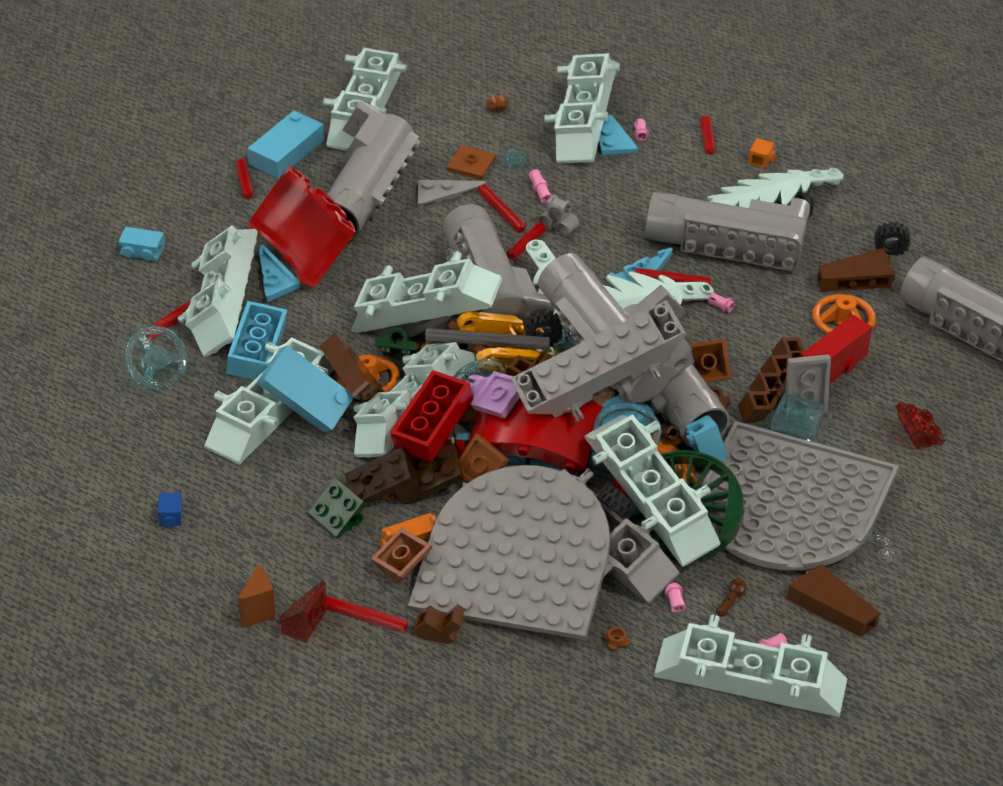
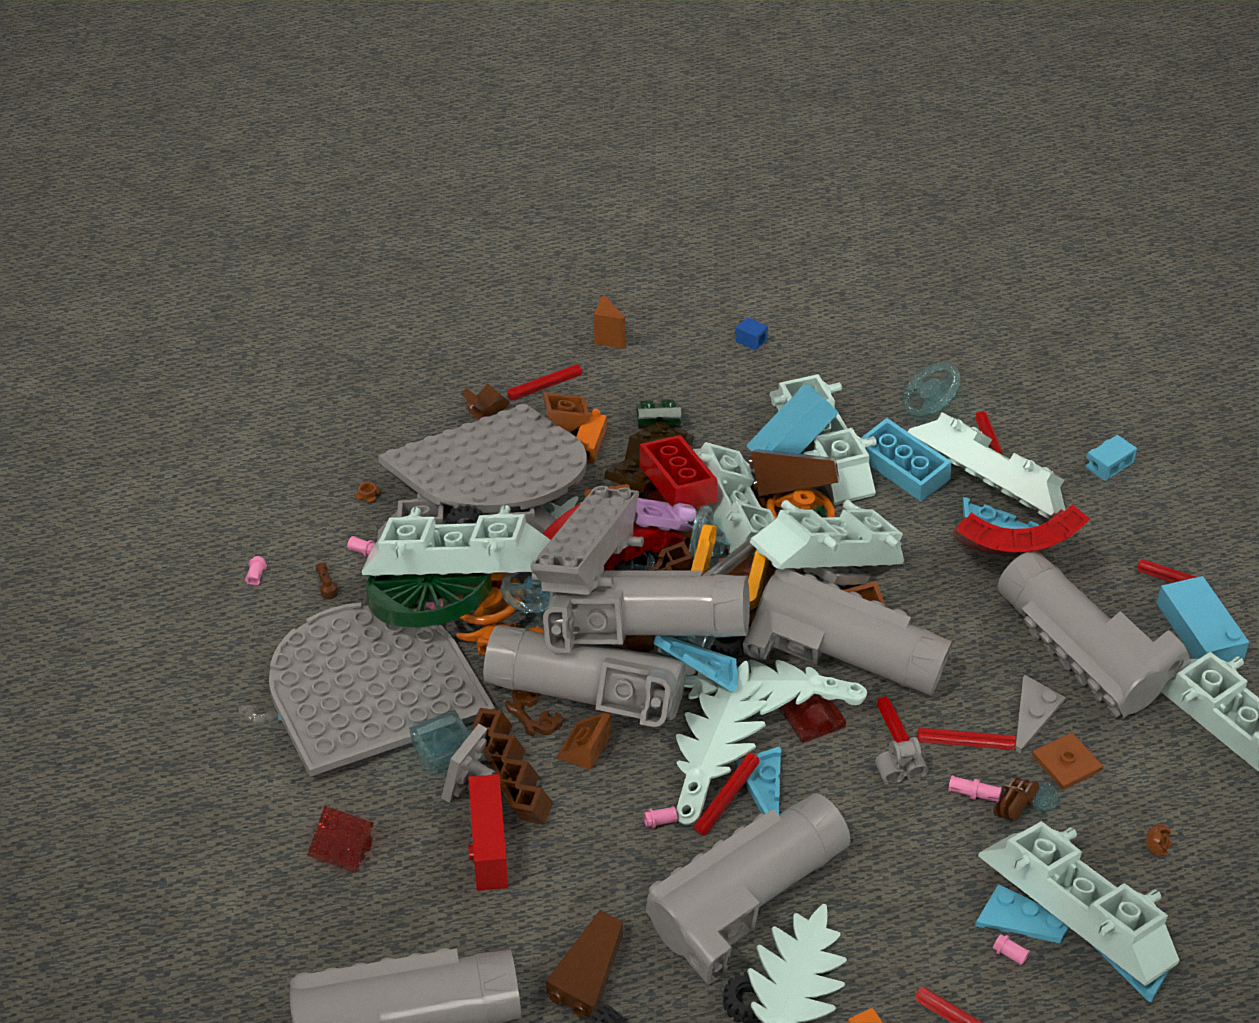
camera: 130 degrees right, 0 degrees up
(305, 614) = (568, 341): clear red slope -> none
(533, 162) = (1016, 798): none -> reddish brown arm
(706, 438) = (476, 644): medium azure brick -> none
(782, 675) = (213, 544): light aqua piece -> none
(833, 600) = (243, 632): reddish brown slope -> none
(840, 311) = (542, 906): orange piece -> none

